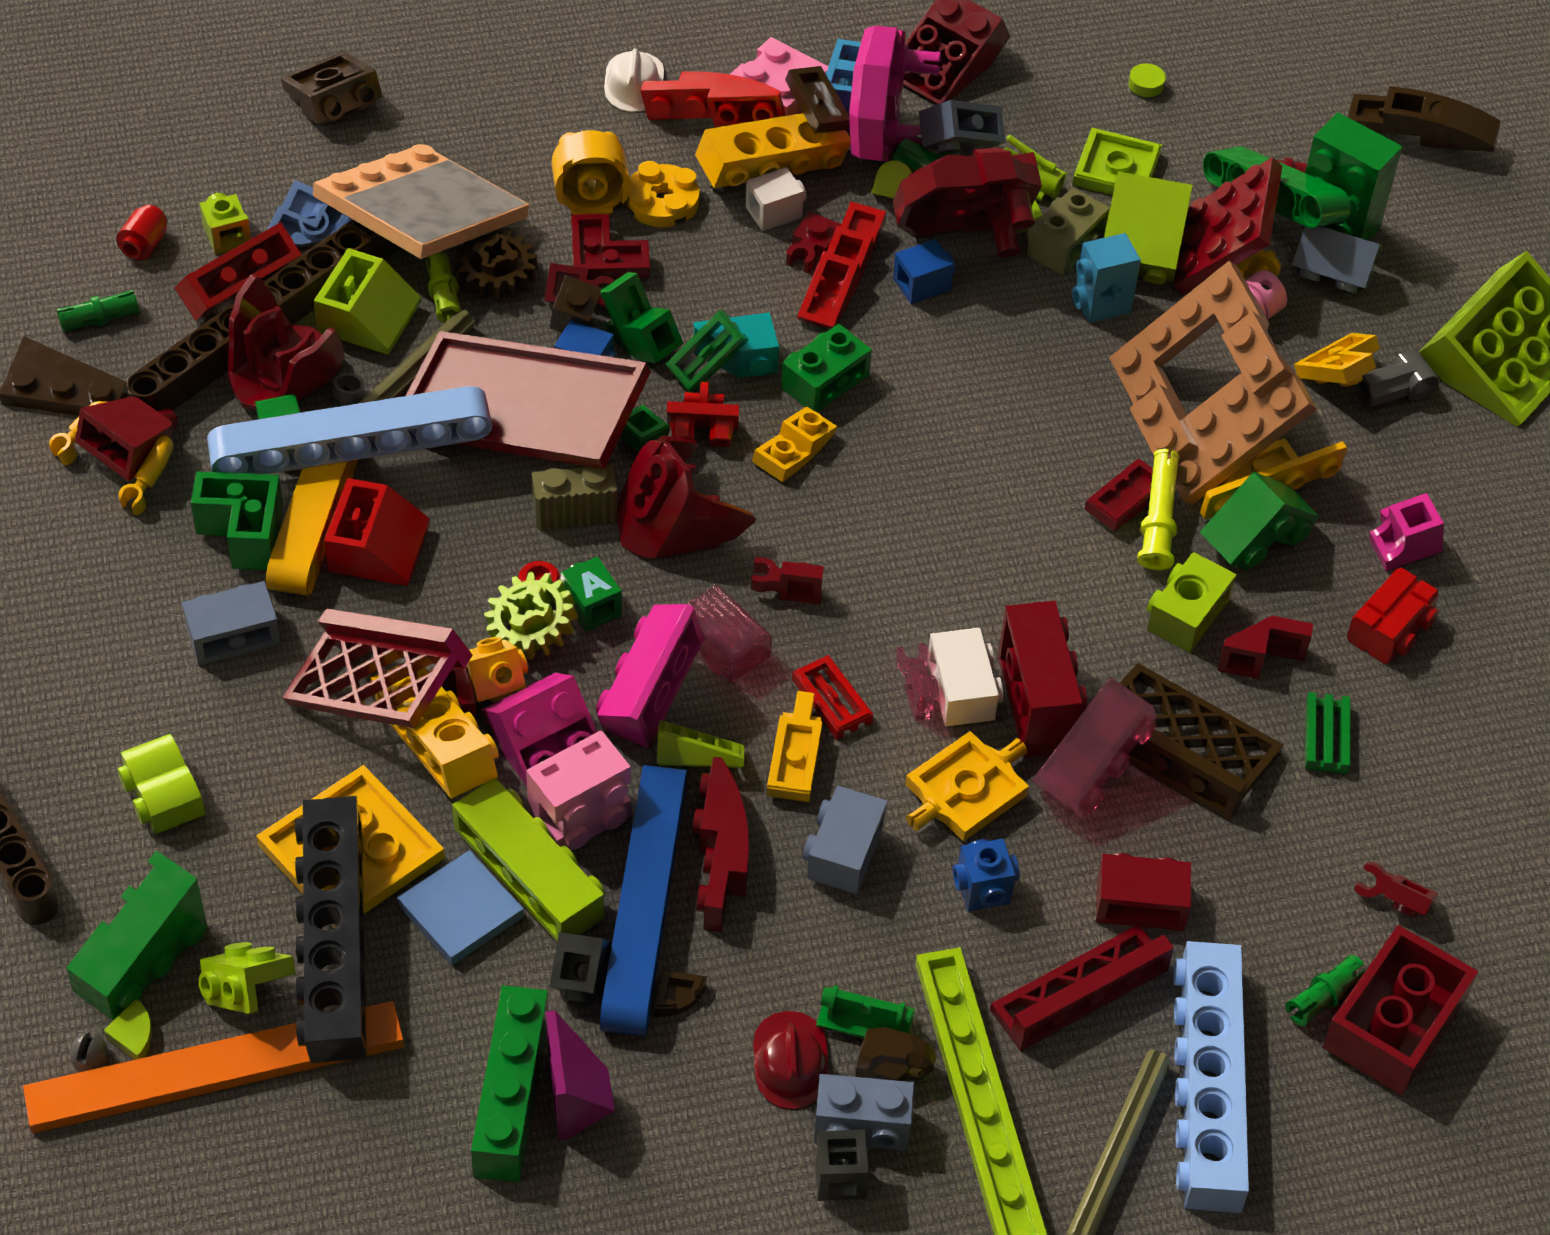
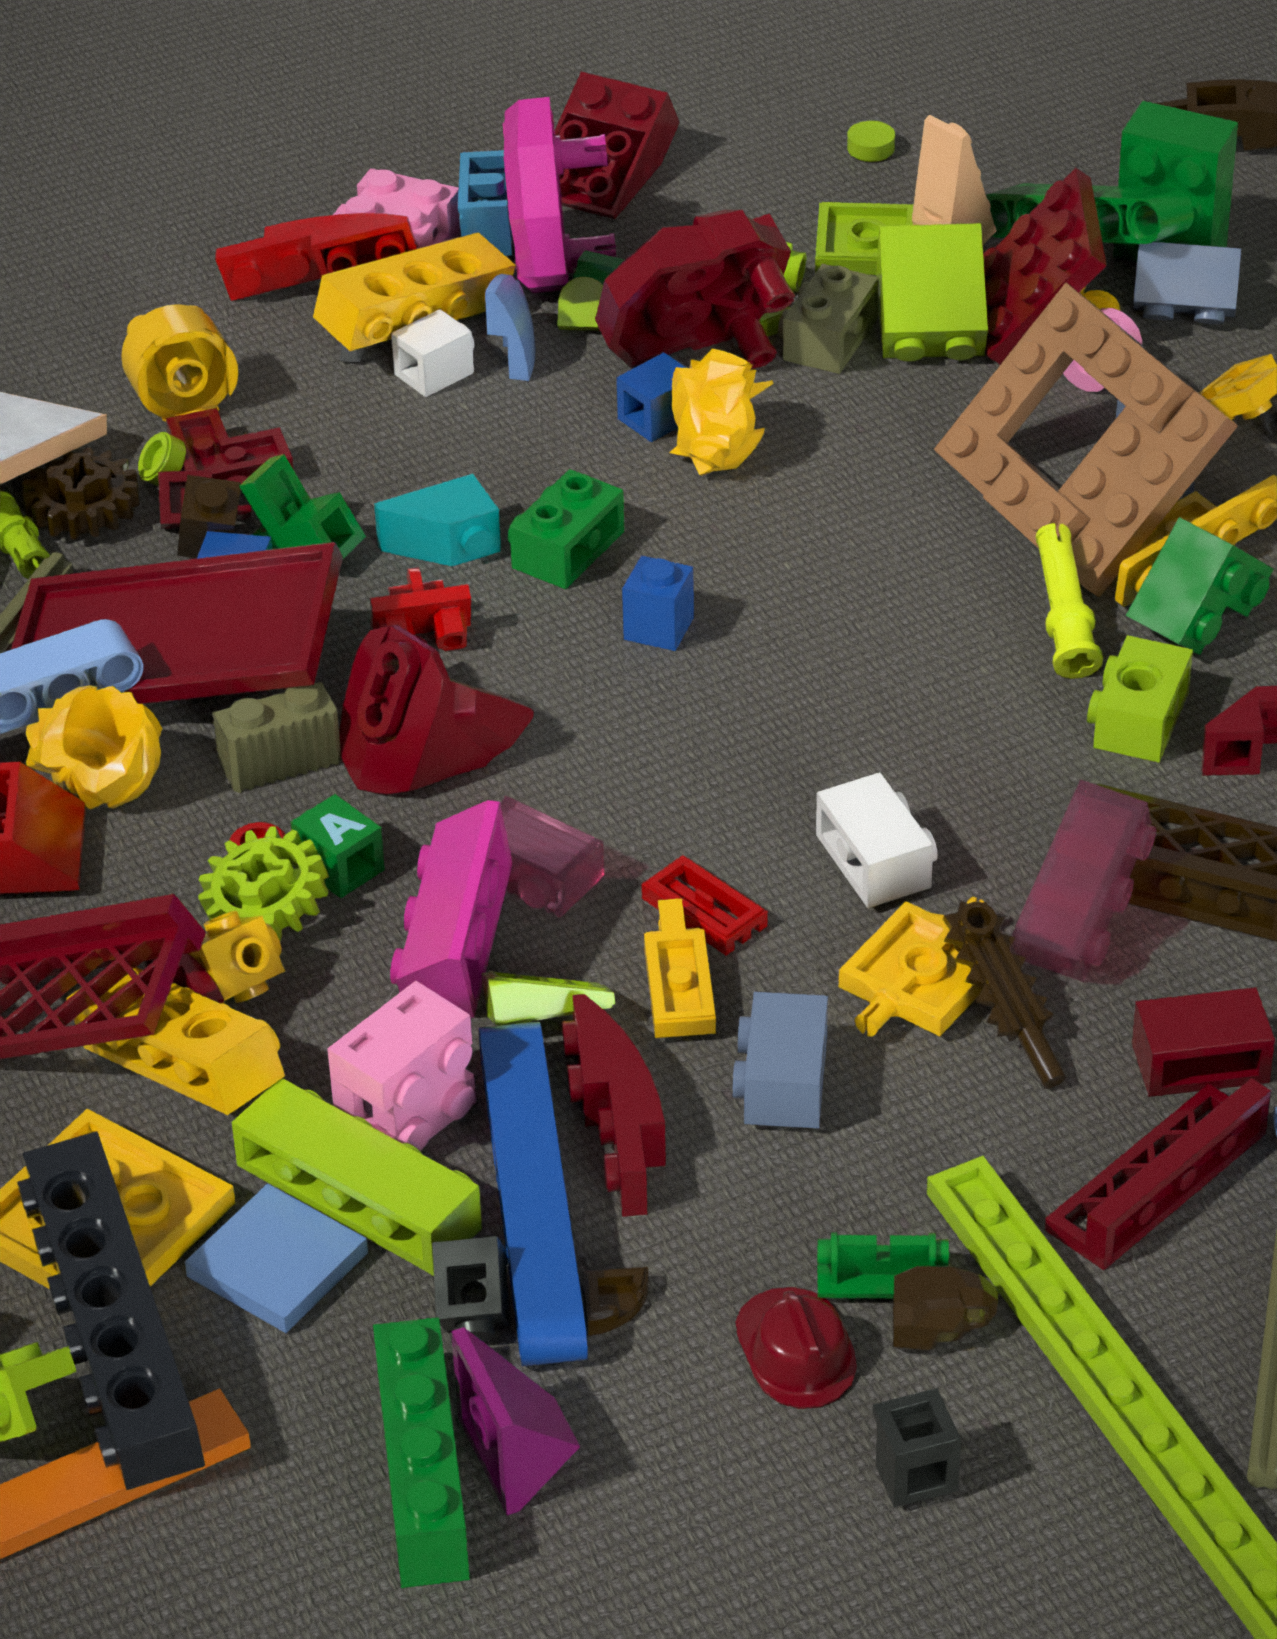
camera: 10 degrees left, 10 degrees down
(446, 479) = (97, 745): none -> yellow hair
(539, 722) = (317, 1005): dark pink slope -> none
(559, 247) = (161, 454): none -> lime tile
(625, 78) = (189, 255): white piece -> none
(643, 427) = (342, 643): green brick -> none
(680, 199) = (297, 362): yellow plate -> none
(717, 361) = (419, 545): green tile -> none
(794, 580) = (610, 779): dark red plate -> none
(796, 445) = (555, 624): yellow slope -> none
(811, 239) = (498, 389): dark red plate -> none
(817, 99) = (459, 220): dark brown plate -> none
(835, 184) = (510, 317): none -> medium blue brick
(842, 266) = (547, 411): red slope -> none
(866, 1104) = (921, 1359): sand blue brick -> none
(871, 446) = (658, 603): none -> blue brick
(919, 686) = (819, 865): clear pink plate -> none
(955, 296) = (716, 411): none -> yellow hair
(961, 127) = (643, 211): sand blue brick -> none
(985, 874) = (987, 1063): blue brick -> none
(1016, 817) = (1003, 985): none -> dark brown piece
(1040, 675) = (979, 811): dark red brick -> none
(1106, 278) = (902, 354): dark azure brick -> none
(1122, 496) = (1008, 598): dark red plate -> none
(1180, 147) = (949, 180): none -> light nougat slope

